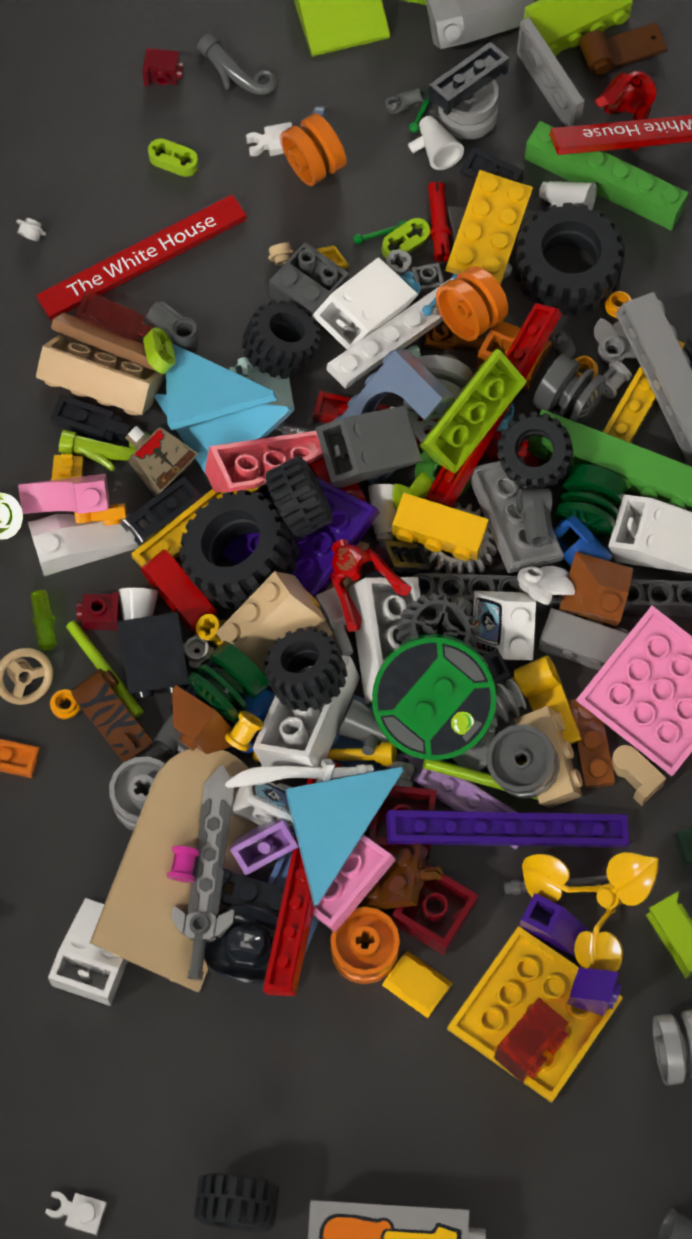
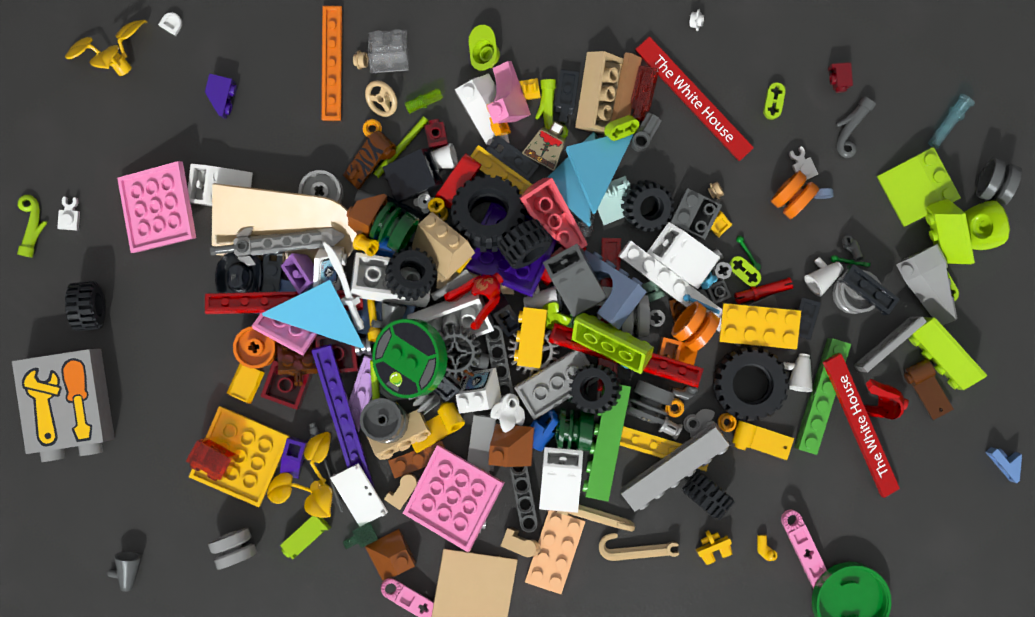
camera: 75 degrees right, 20 degrees up
(103, 1051) = (156, 207): none -> bright pink plate
(183, 864) = (275, 227): dark pink bush -> none
(535, 508) = (554, 397): dark grey piece -> none
(594, 990) = (252, 490): dark purple slope -> none
(648, 834) = (357, 497): none -> white door
(654, 263) = (762, 440): none -> yellow door

